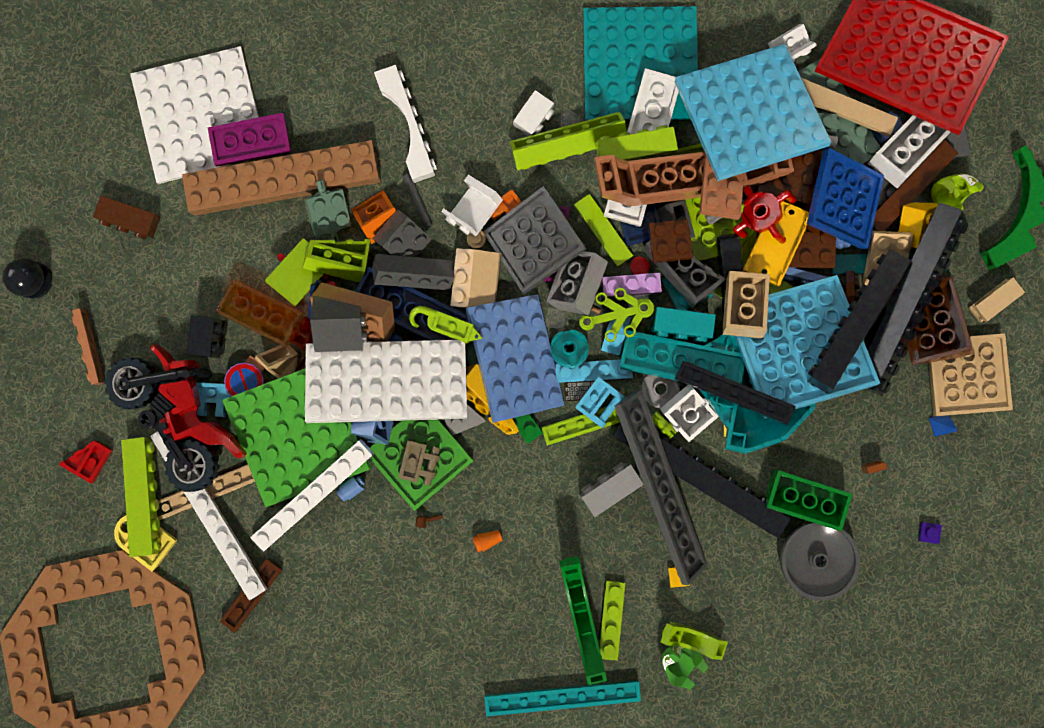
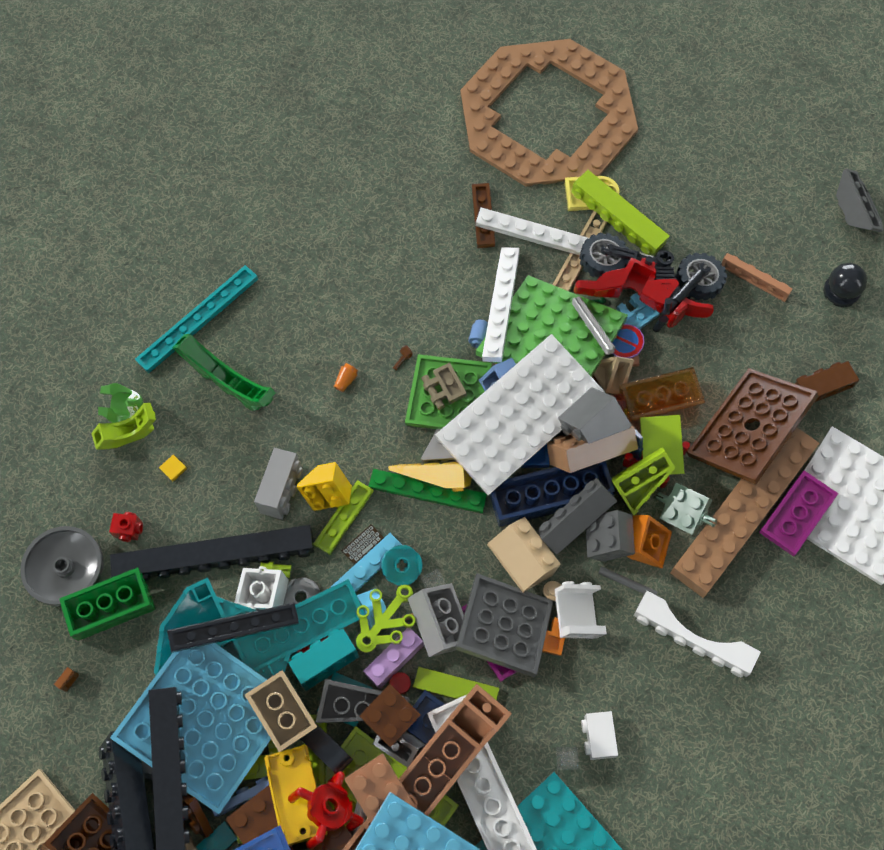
camera: 145 degrees right, 20 degrees down
(88, 461) = (678, 209): red wing -> none
(191, 248) = (759, 398): none -> reddish brown plate
(206, 337) = (682, 345): black brick -> none
(259, 410) = (593, 325): none -> light grey axle
(446, 324) = (513, 495): lime plate -> none
(515, 358) = (439, 521): medium blue plate -> none
(565, 141) = (550, 737): lime brick -> none
(577, 454) = (325, 487): none -> yellow slope
(595, 397) = (348, 543): medium azure plate -> none
(611, 619) = (202, 398): lime plate -> none
(639, 146) = (487, 775): lime brick -> none
(661, 486) = (240, 514): dark grey plate -> none
(756, 555) = (126, 526): none -> red brick
(942, 425) = (27, 766): blue slope -> none

